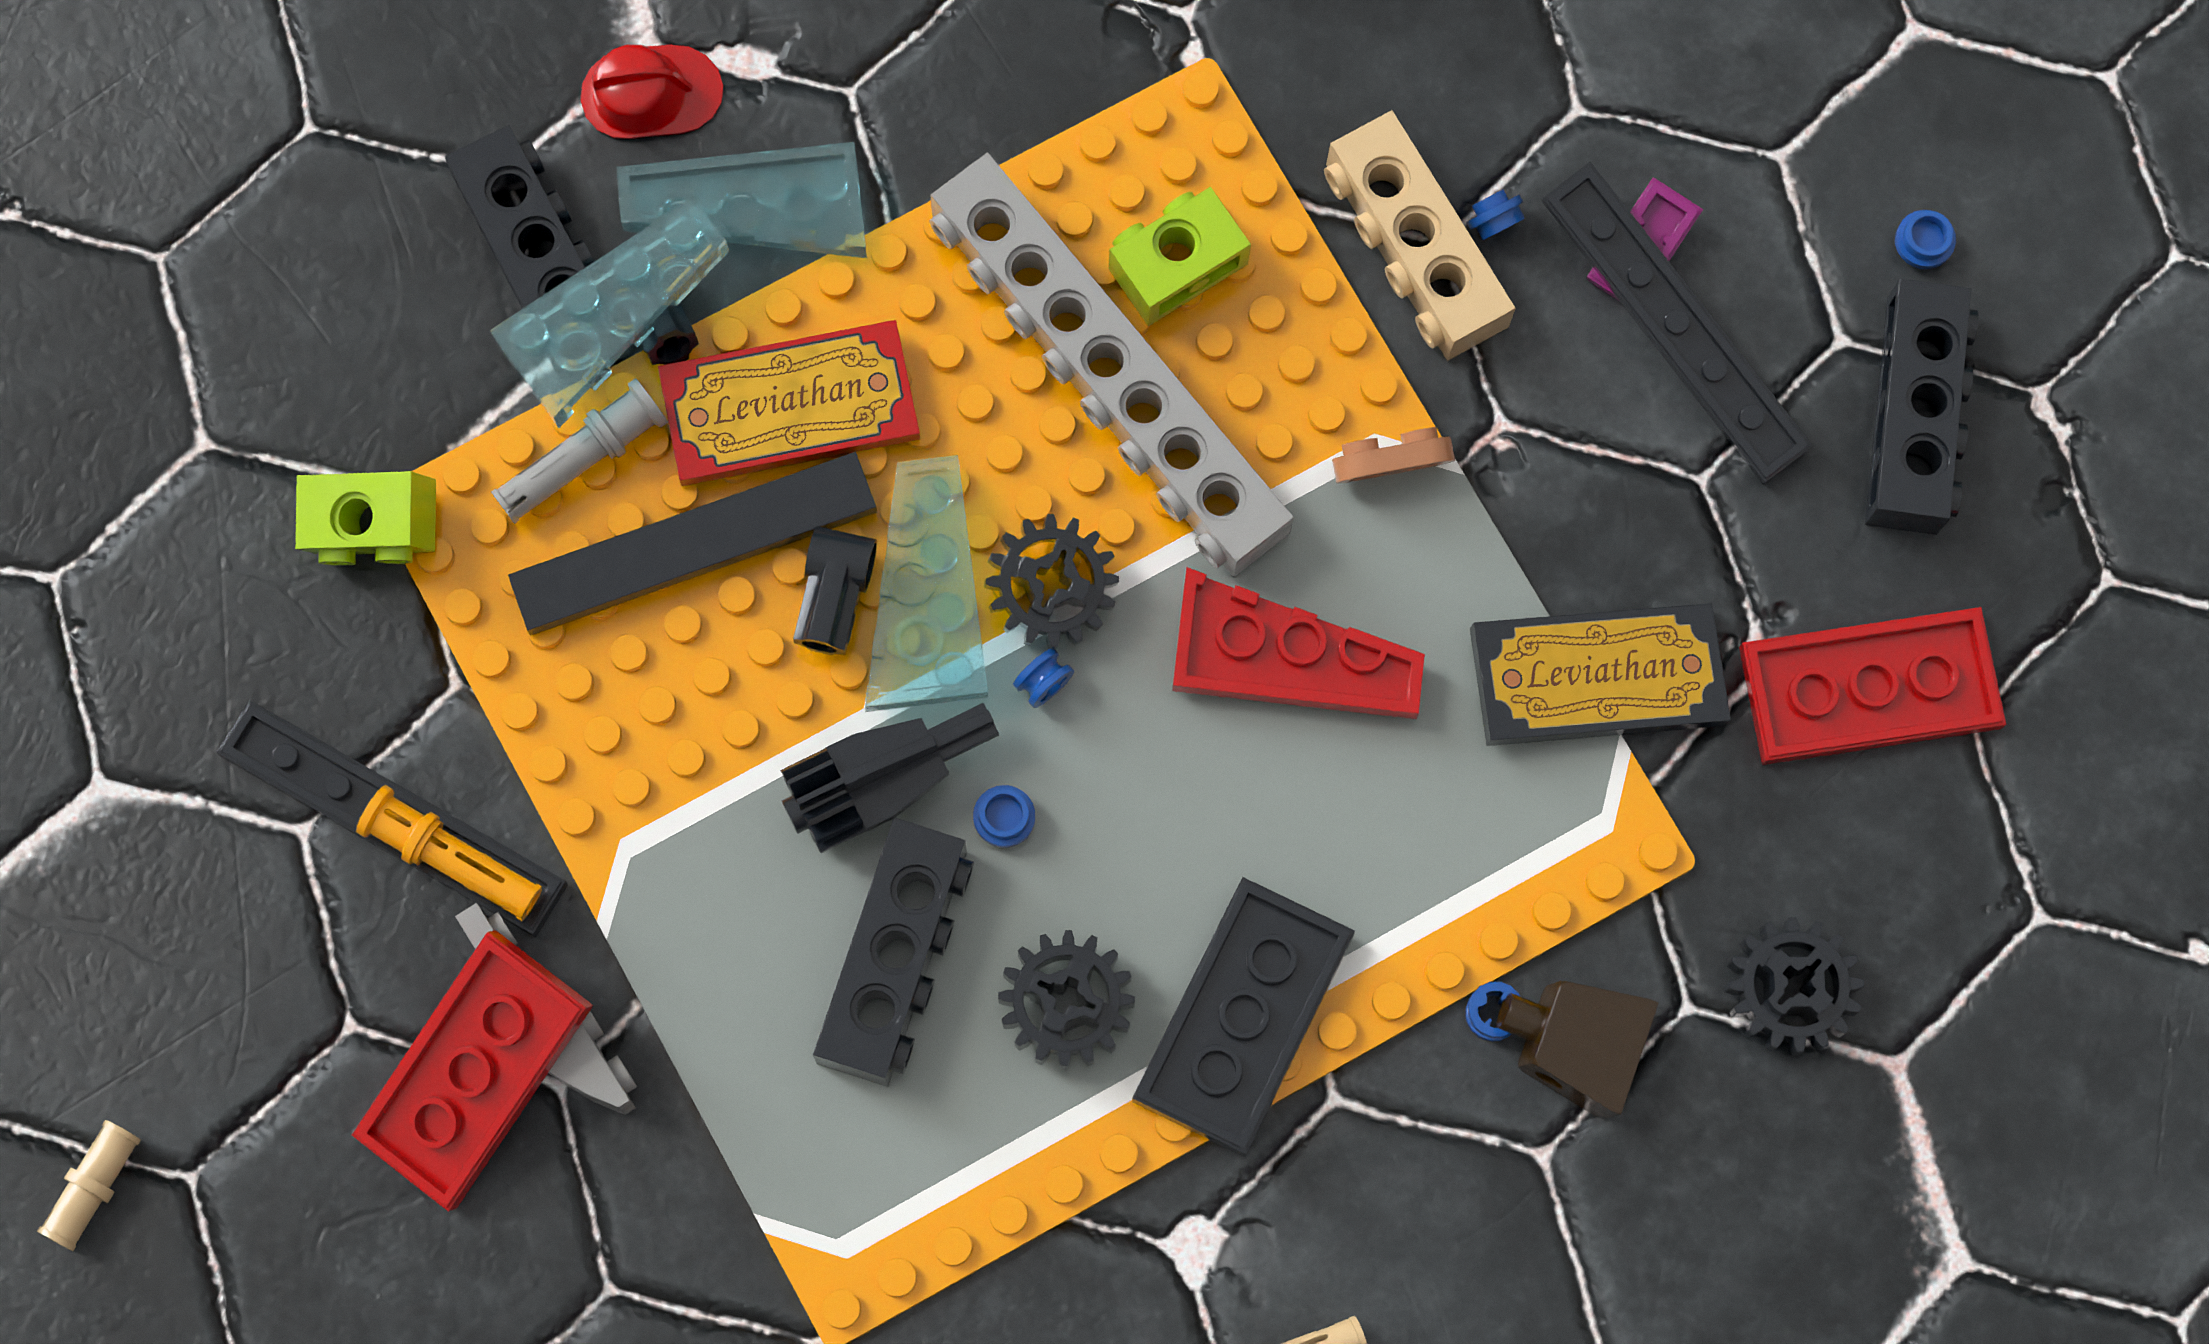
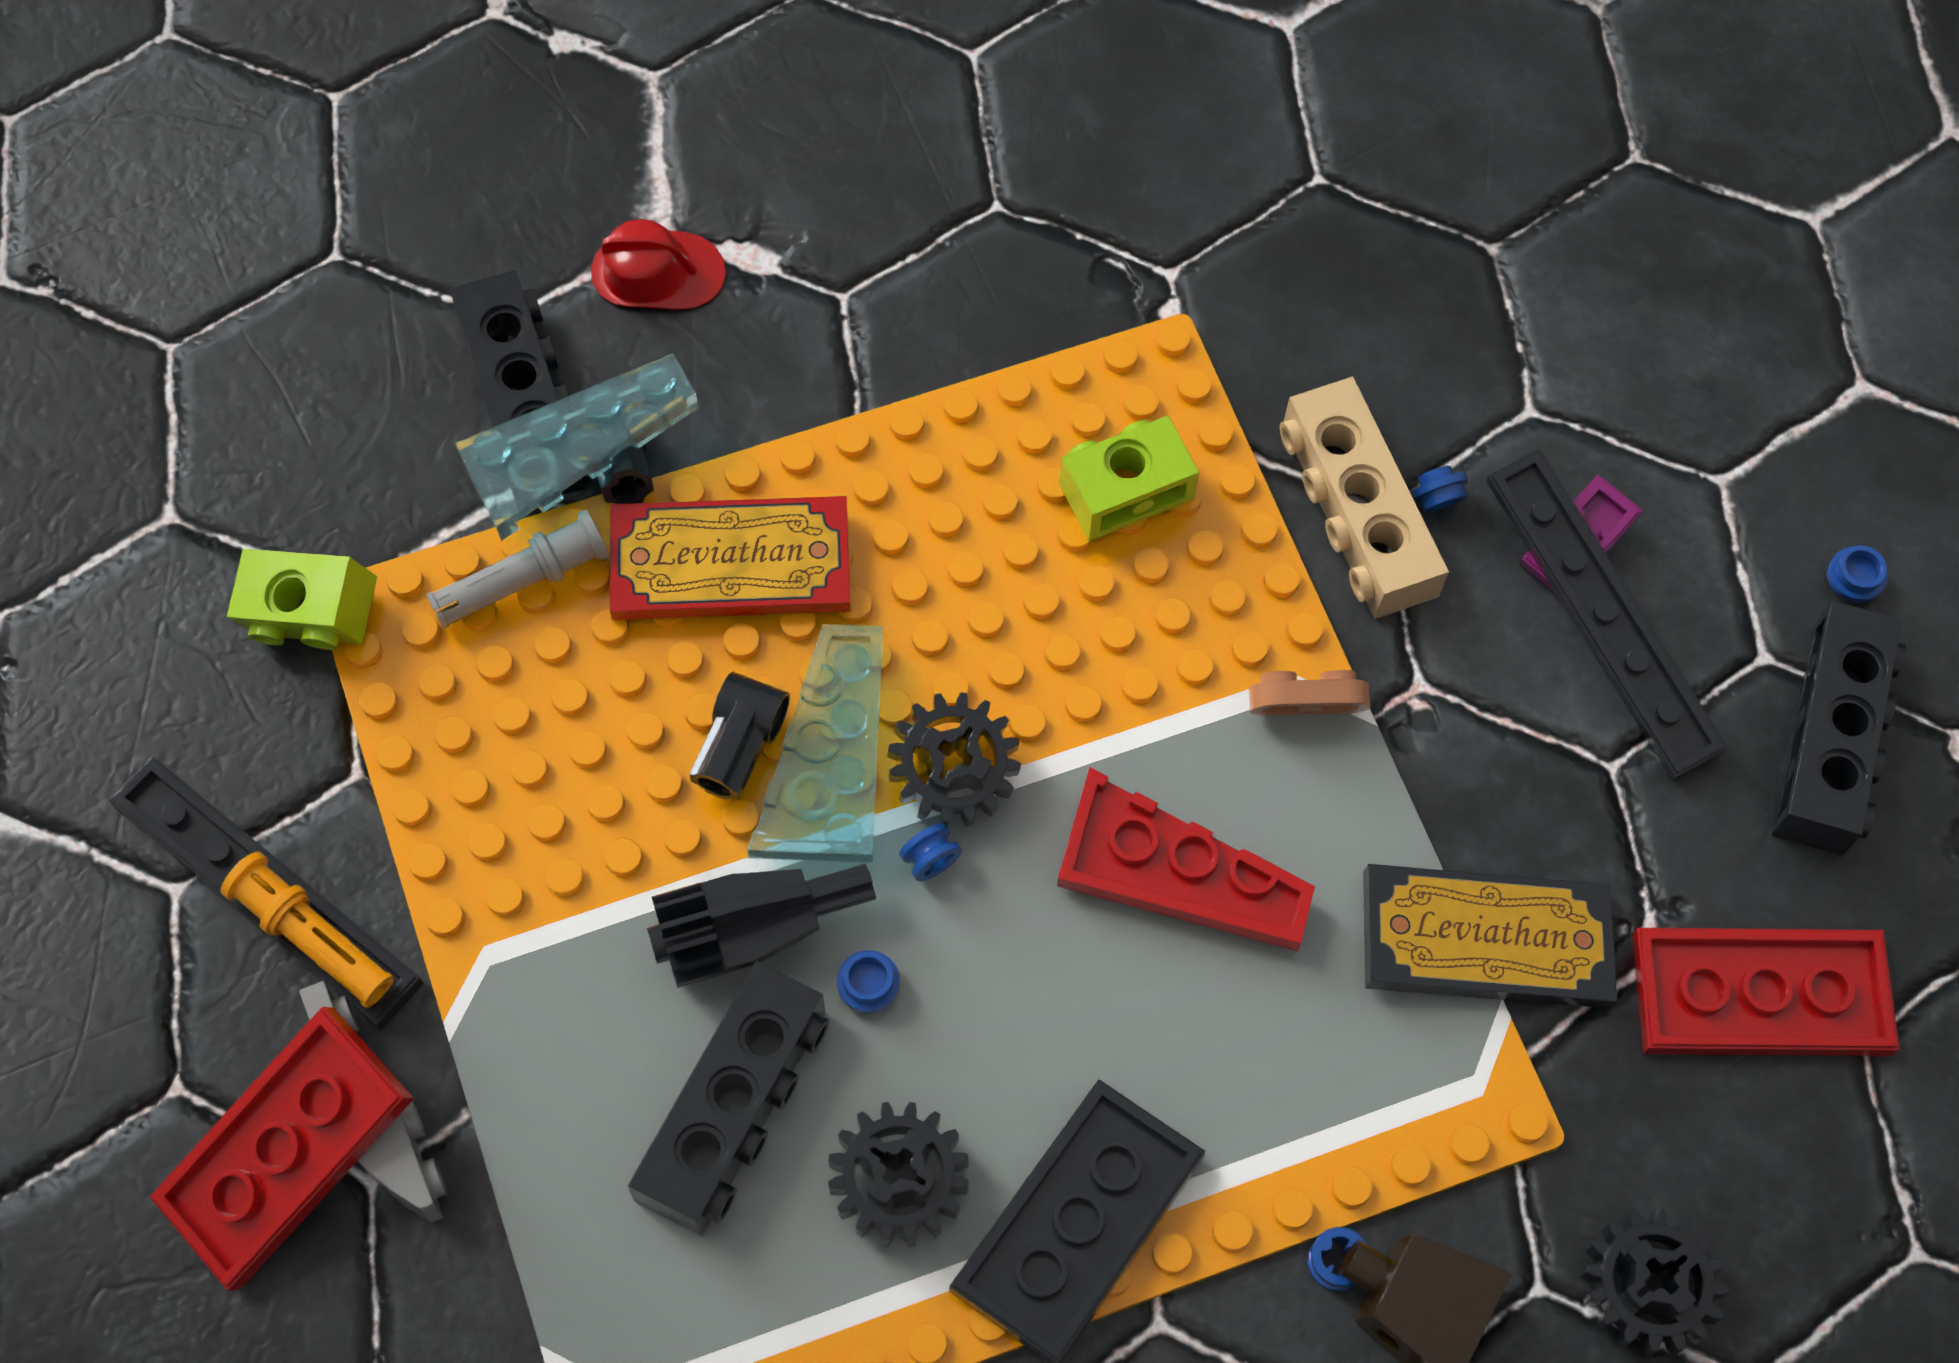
camera: 10 degrees right, 10 degrees down
(692, 543) = (608, 673): black tile -> none
(762, 198) = (743, 374): clear light blue wing -> none
(987, 196) = (953, 397): light grey brick -> none

